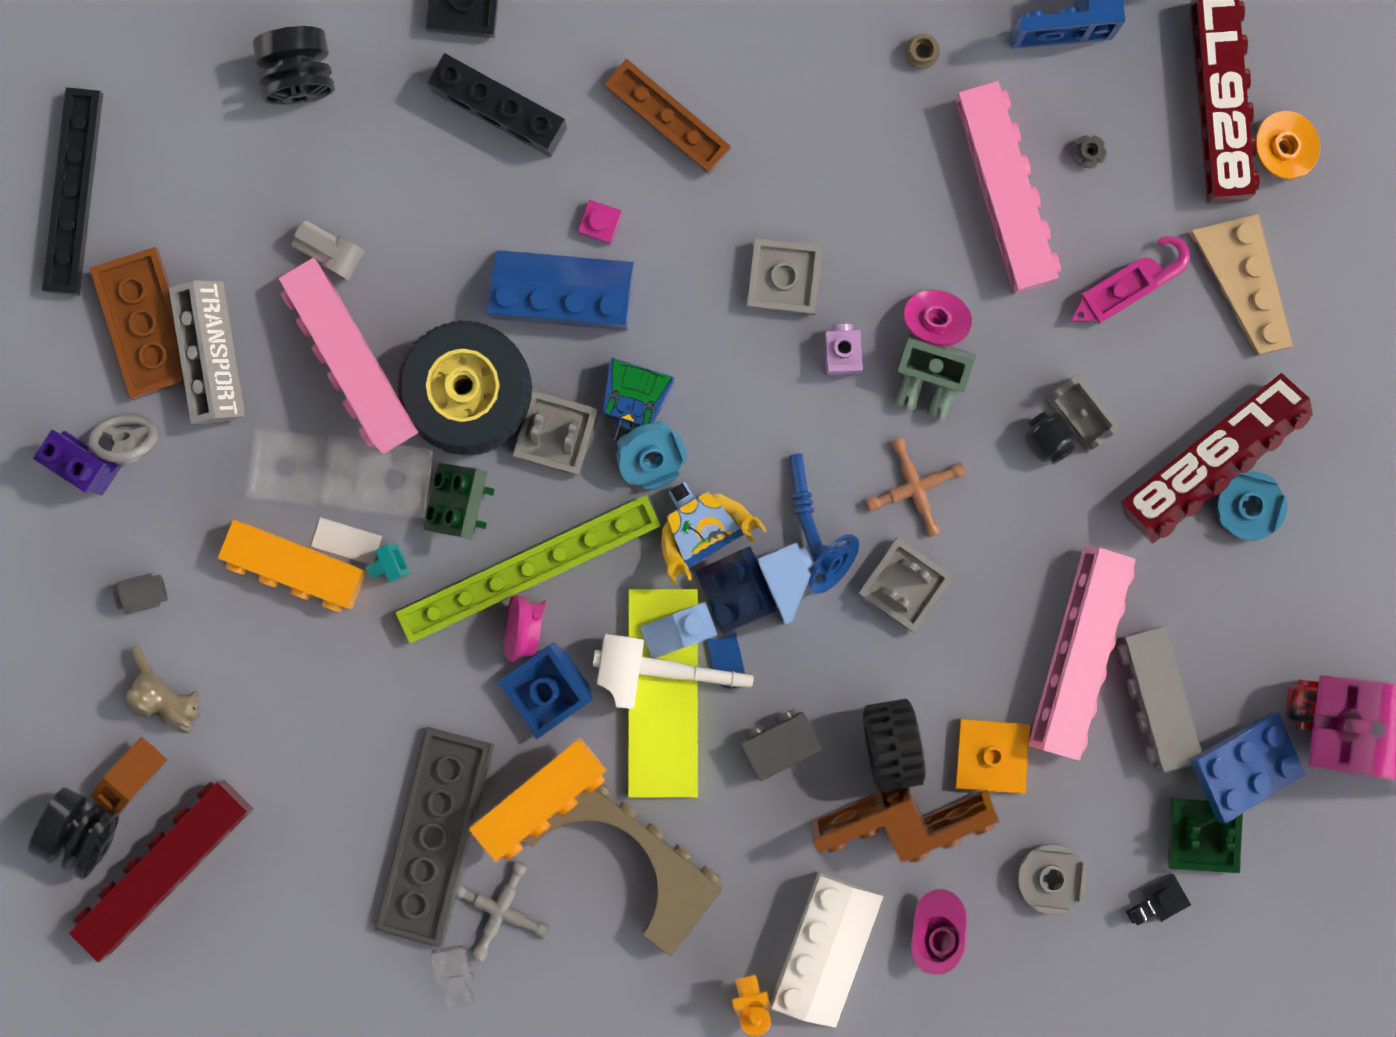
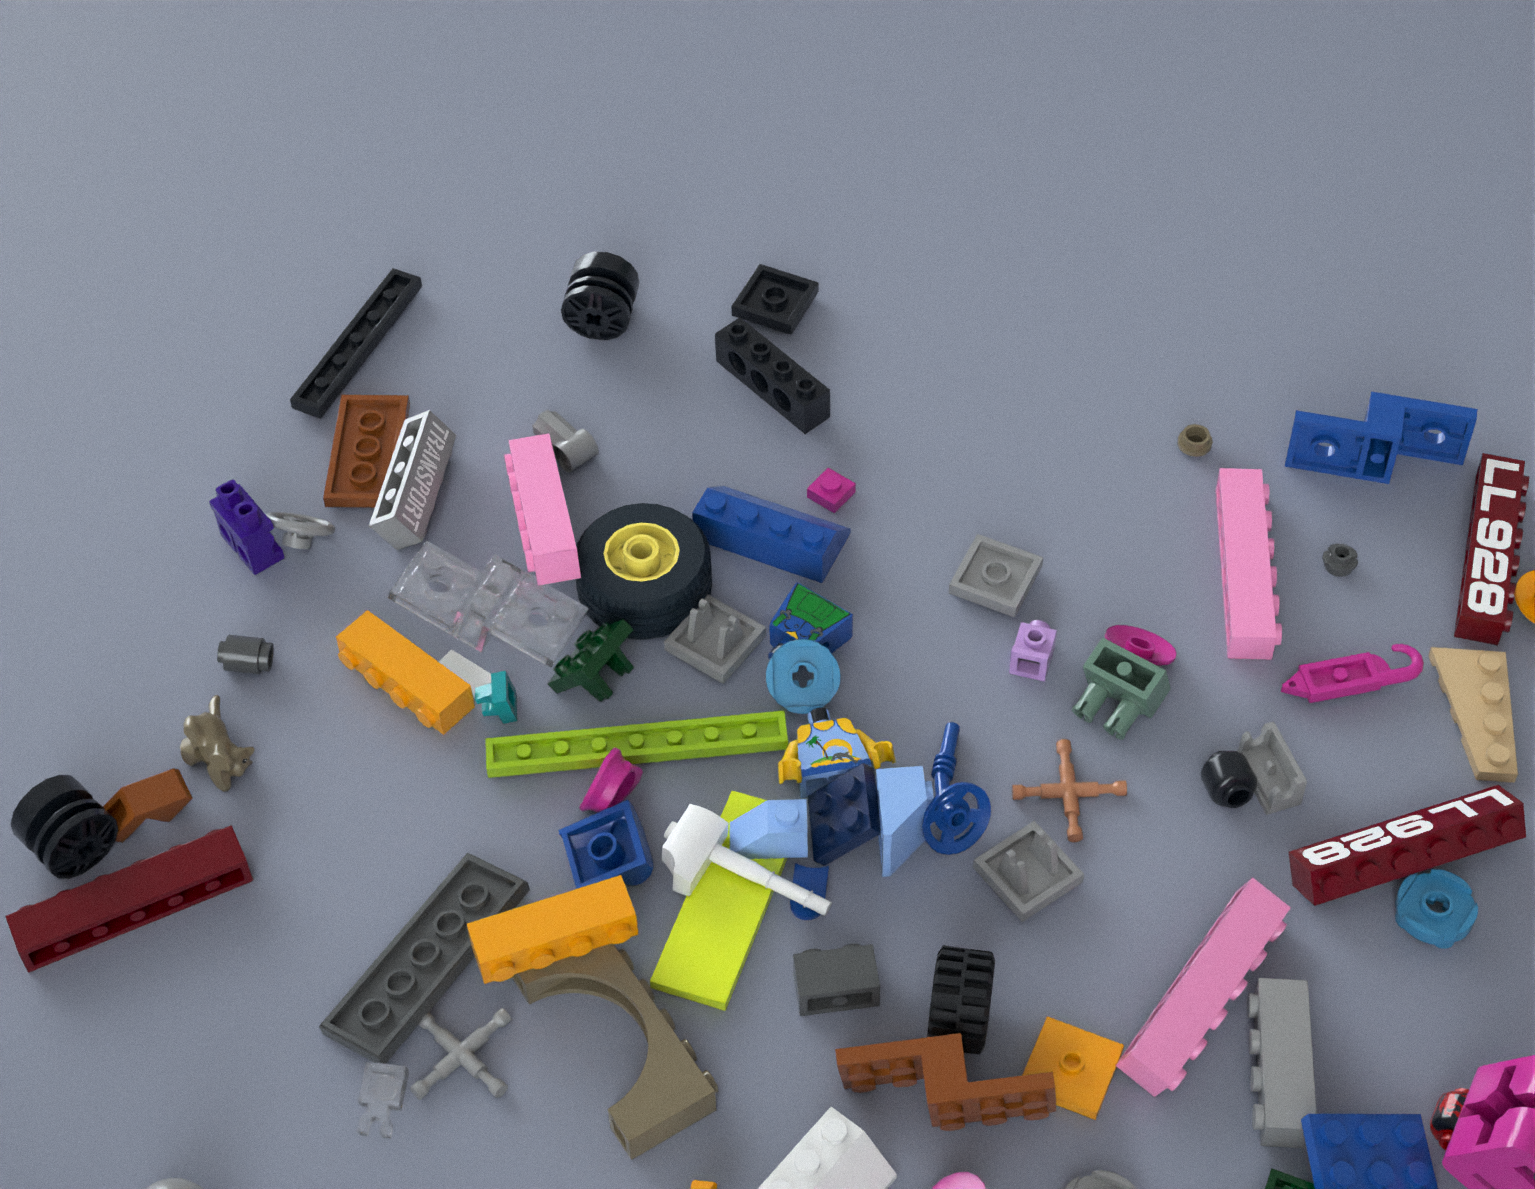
camera: 20 degrees right, 35 degrees down
(667, 116) = (929, 426): dark orange plate -> none

